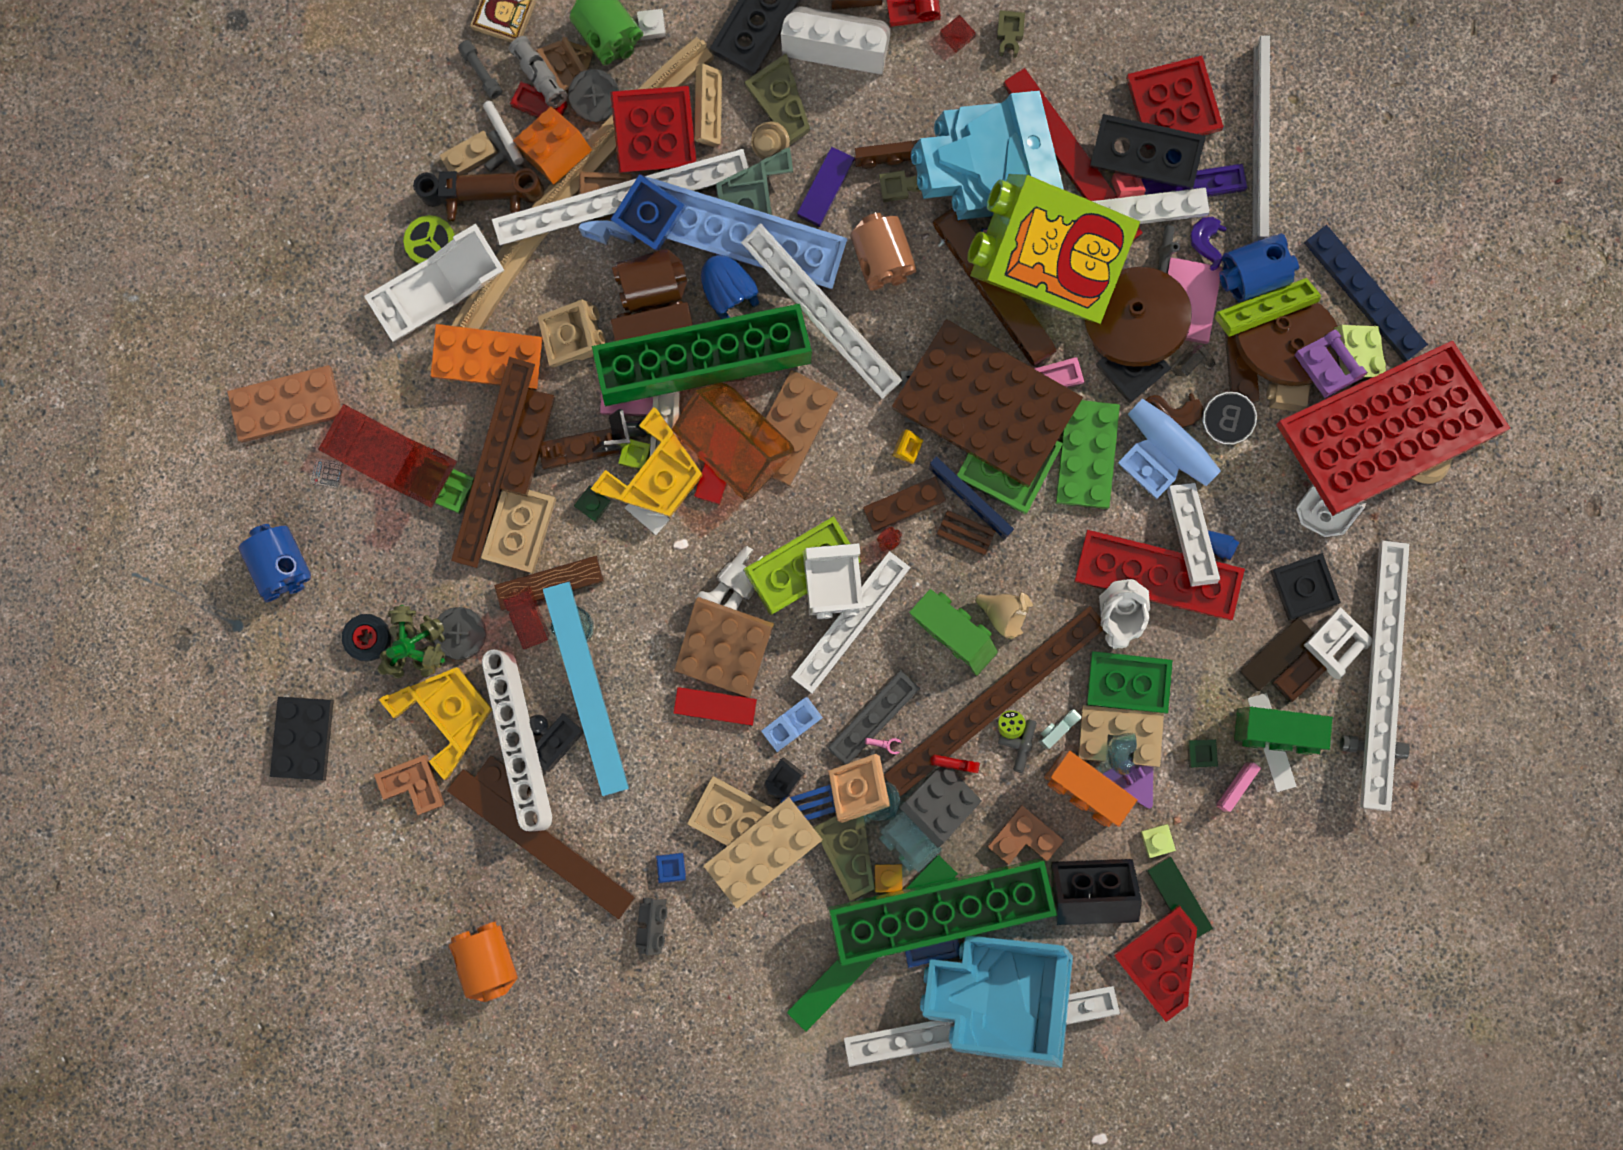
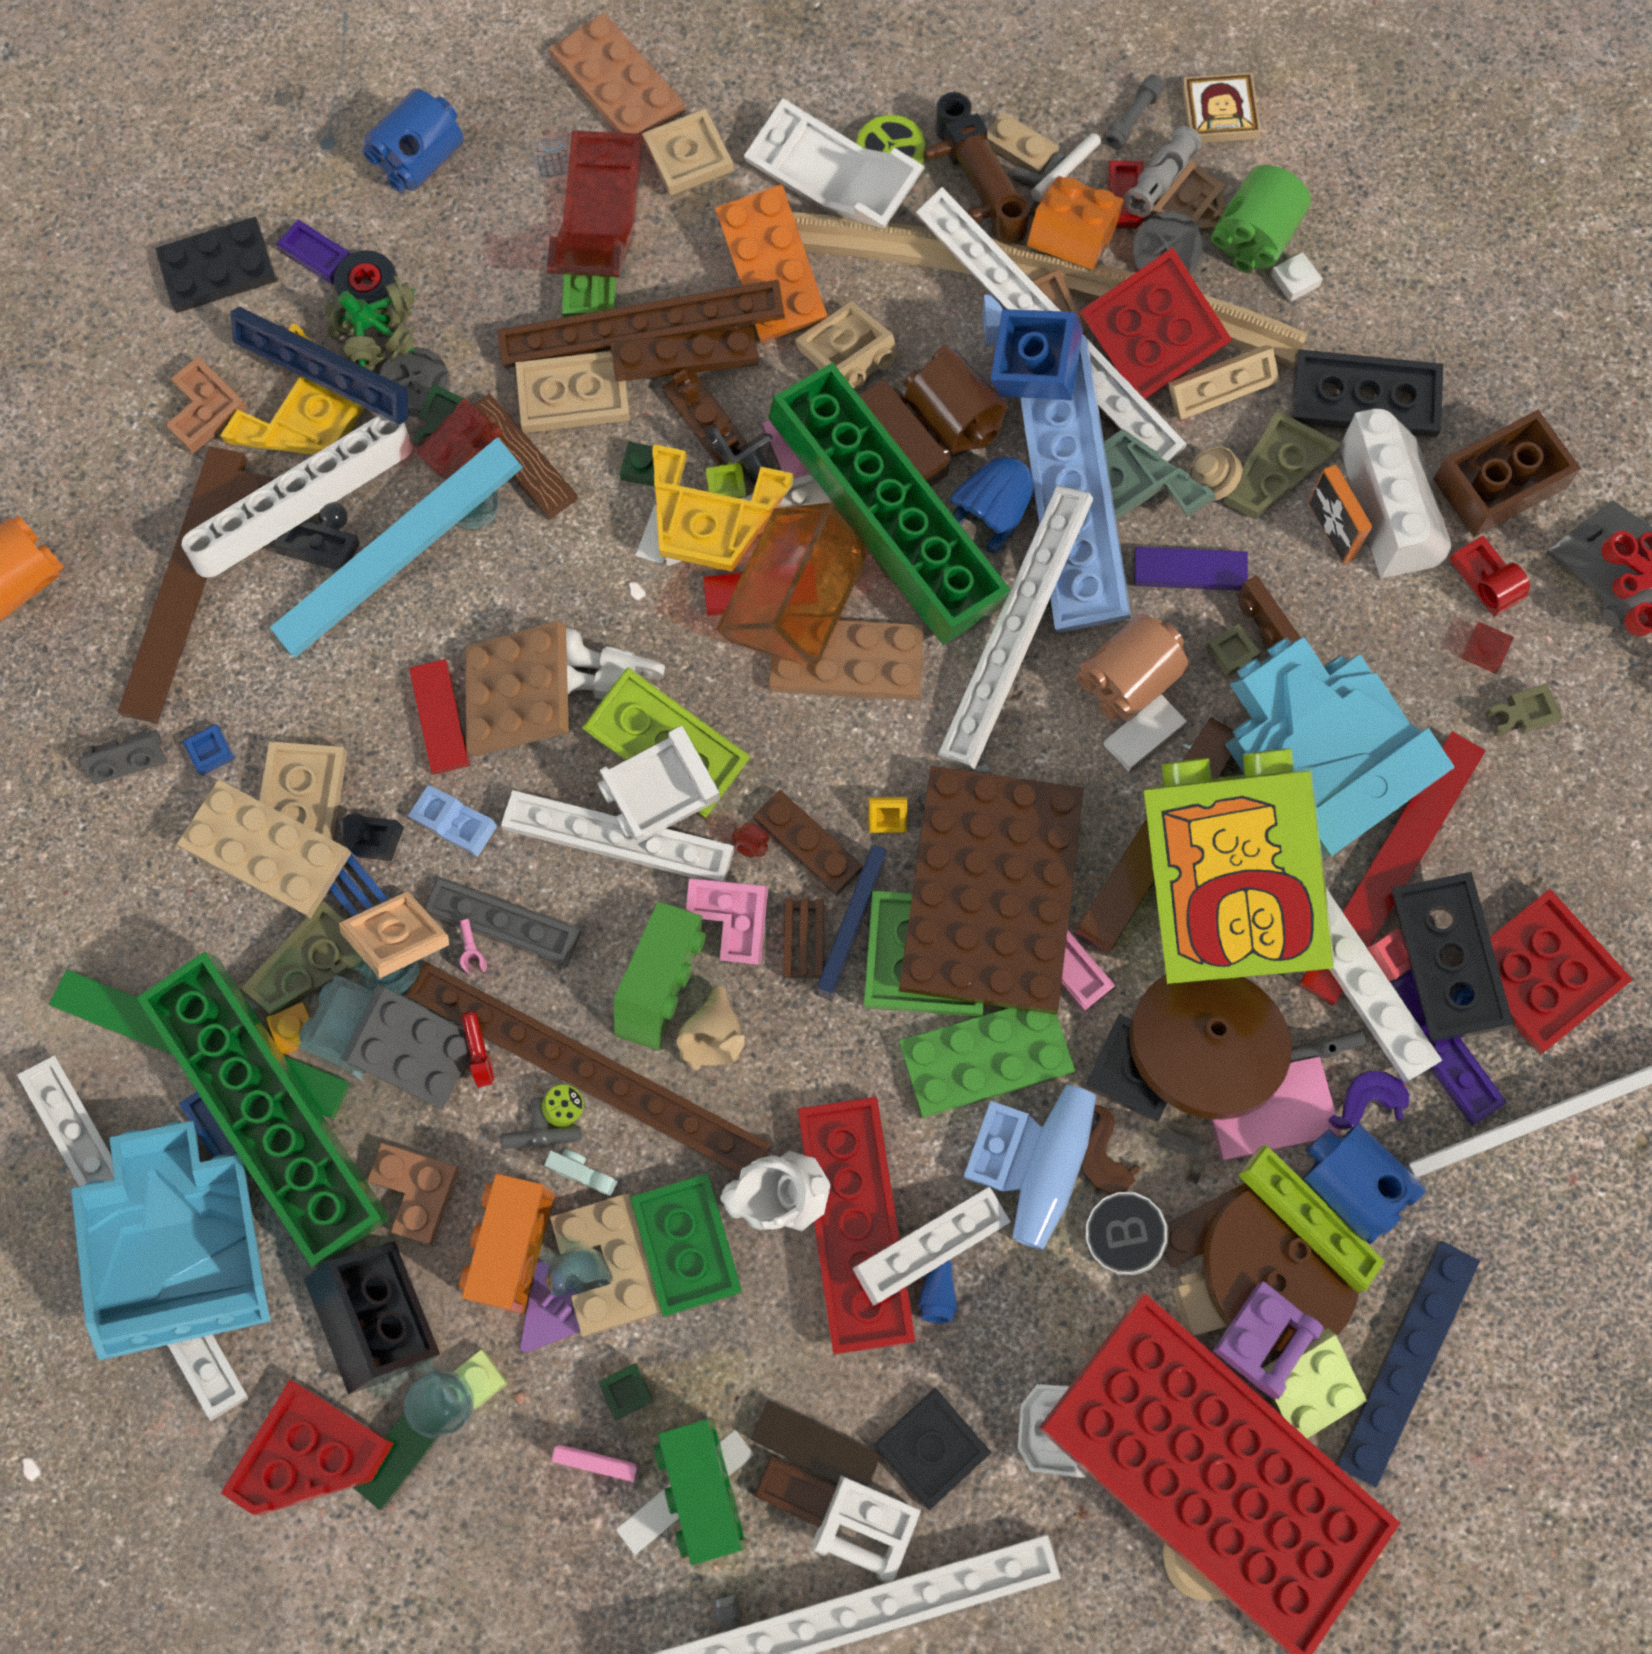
camera: 65 degrees right, 10 degrees down
(323, 665) = (312, 250): none -> dark purple tile
(369, 378) = (688, 152): none -> tan plate
(426, 691) = (320, 365): none -> dark blue tile
(494, 623) = (435, 410): none -> dark green plate
(837, 77) = (1339, 513): none -> tile
(927, 274) = (1145, 733): none -> white tile
(933, 564) = (741, 910): none -> bright pink plate
(1169, 866) = (438, 1403): none -> clear light blue hair

